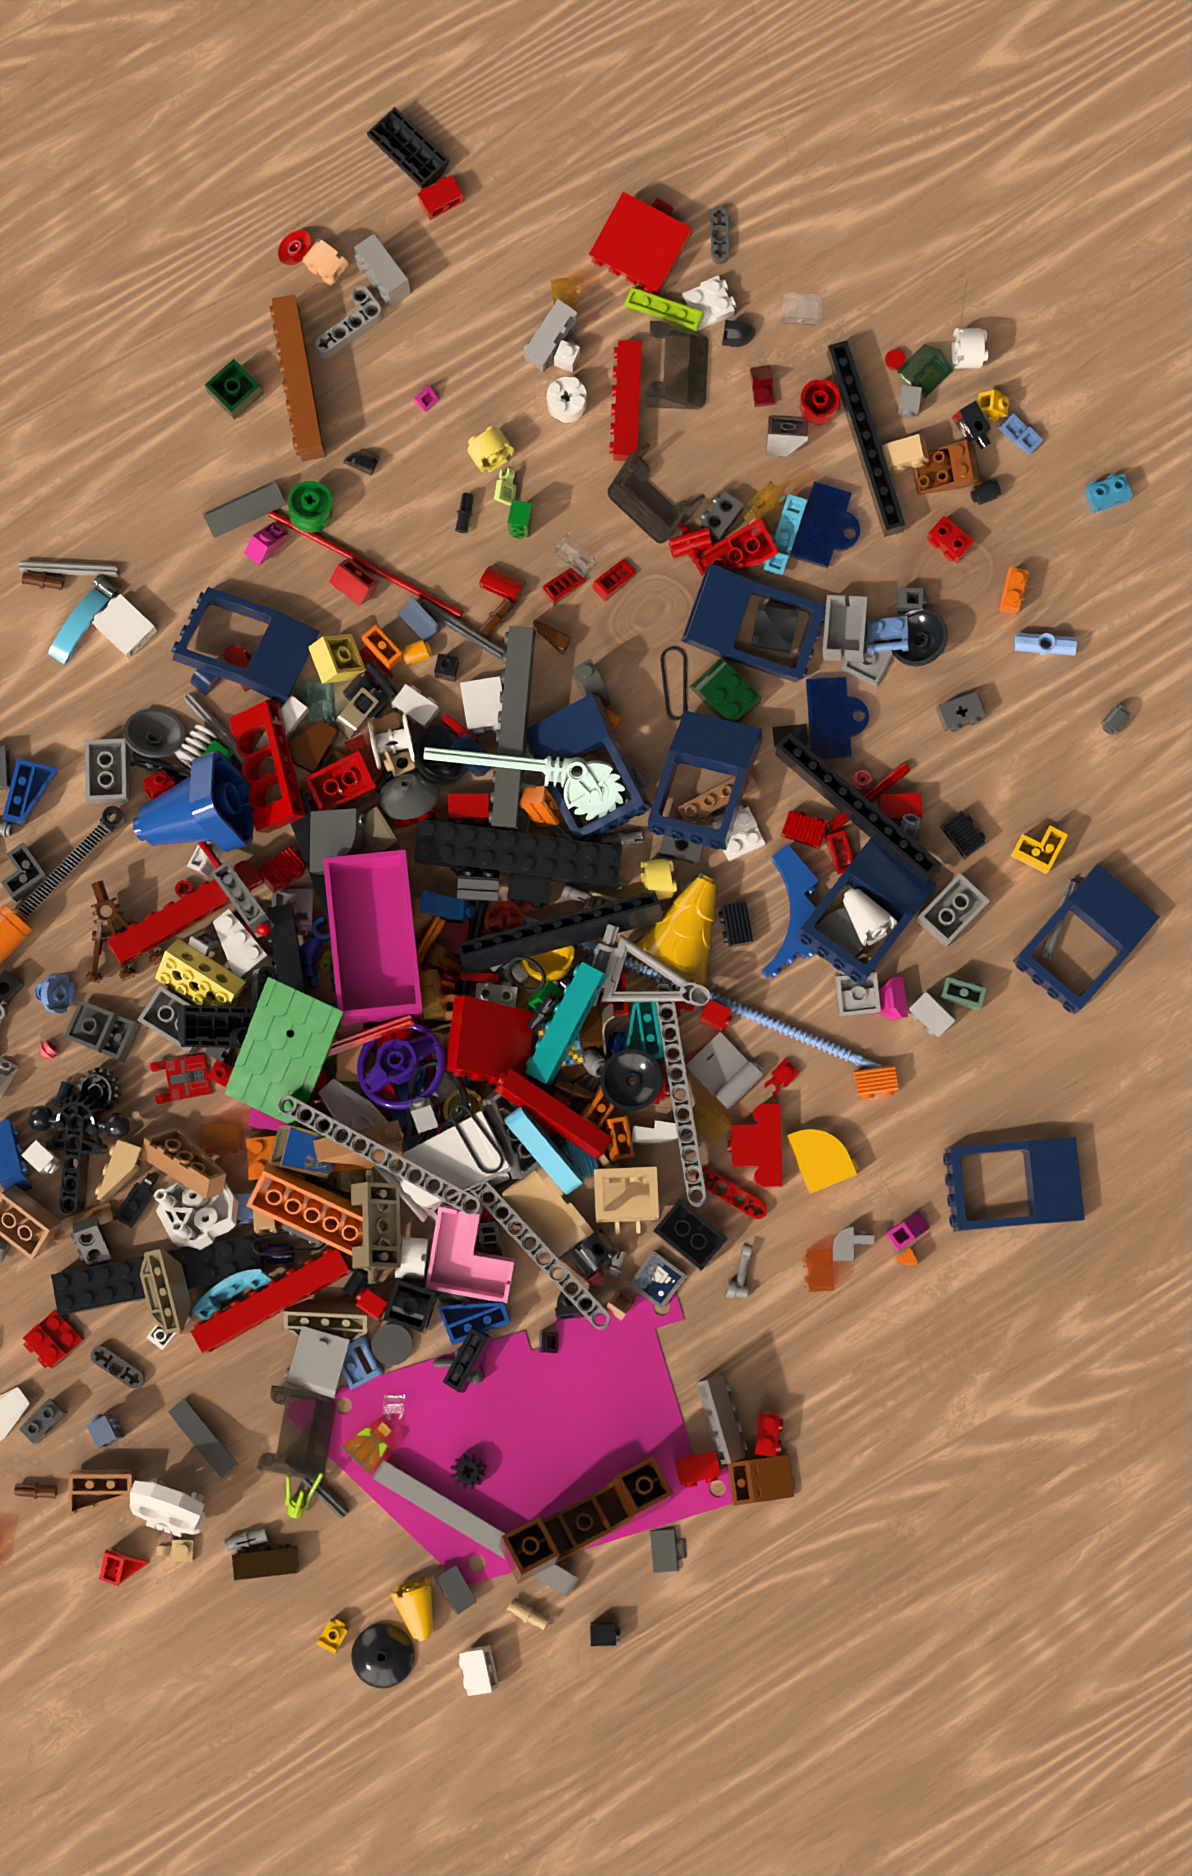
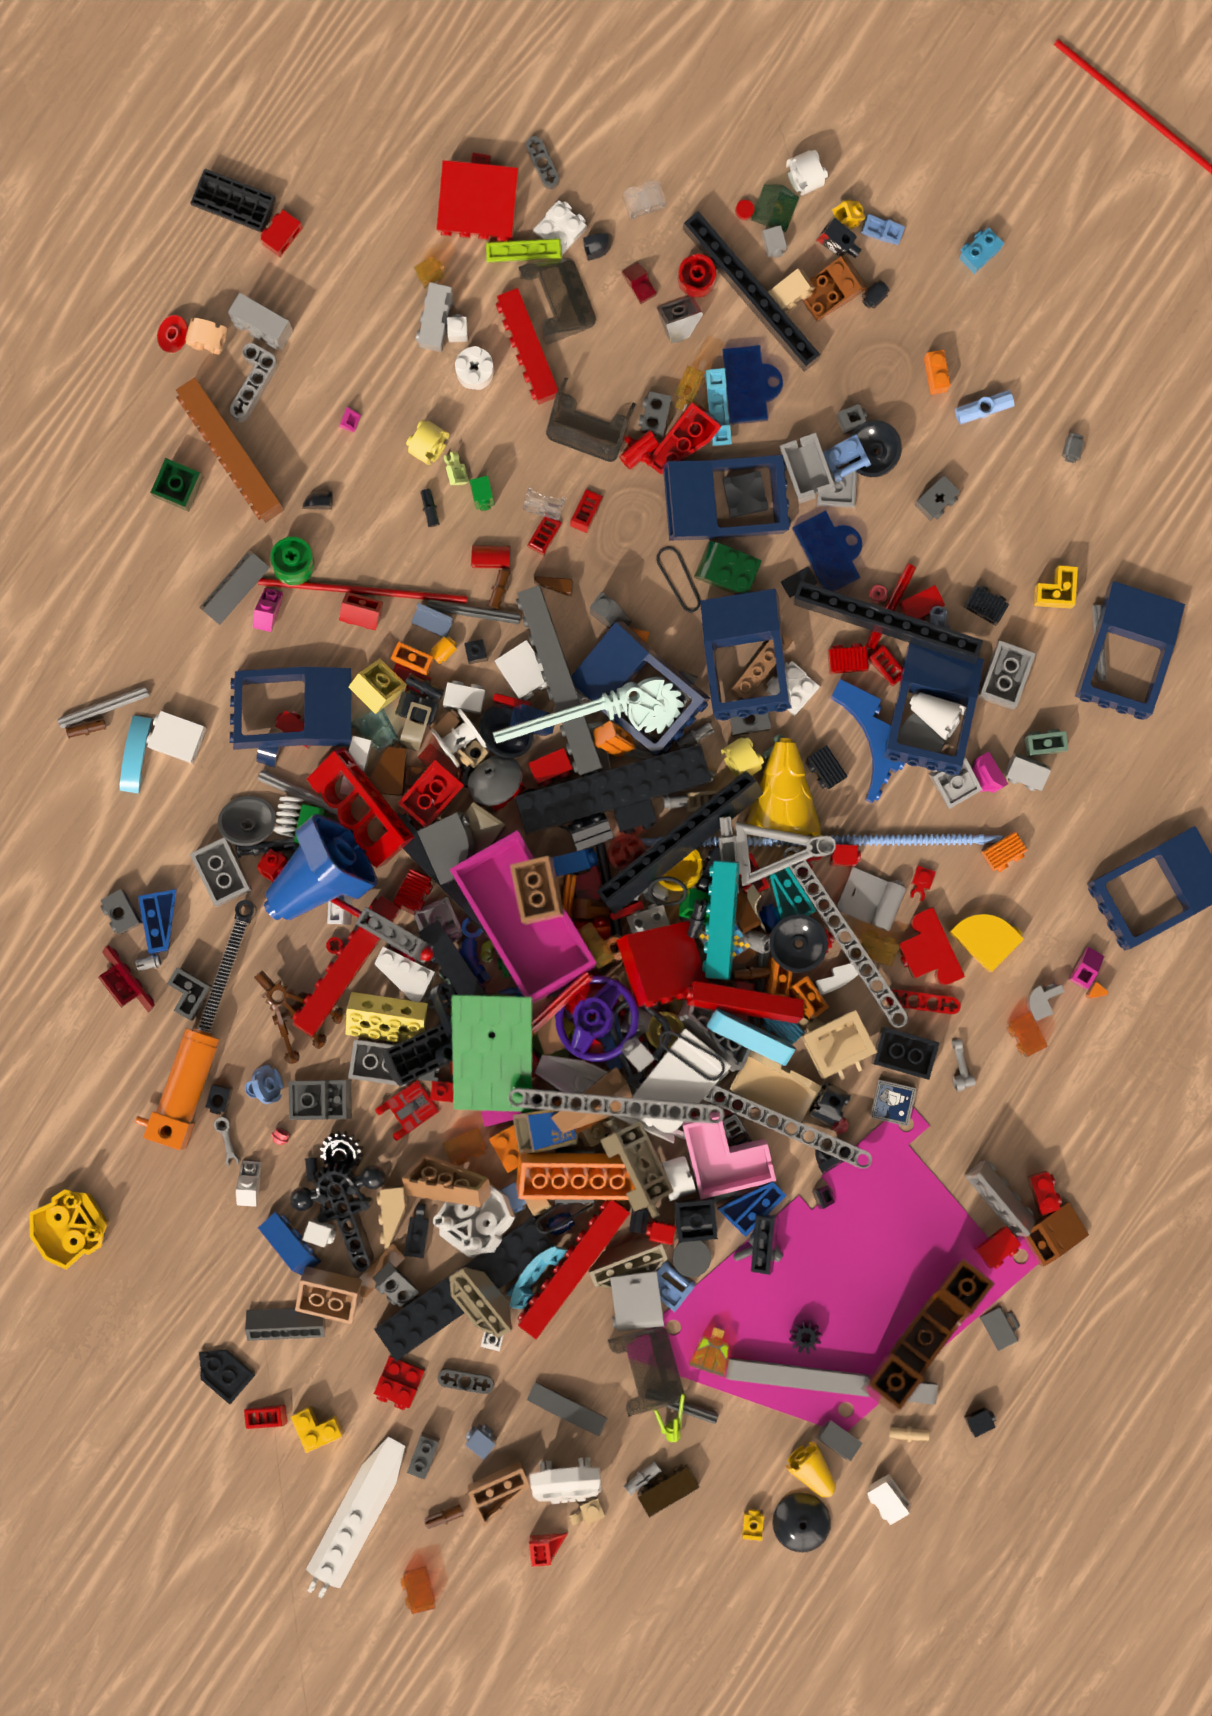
camera: 30 degrees left, 5 degrees up
(104, 586) = (143, 709): dark grey pin -> none
(204, 942) = (374, 984): light grey slope -> none
(394, 1404) = (717, 1308): clear tile -> none
(396, 912) = (537, 890): none -> medium nougat brick
(616, 1263) = (852, 1106): light grey pin -> none
(619, 1305) = (872, 1139): nougat tile -> none
(950, 539) = (862, 350): red brick -> none

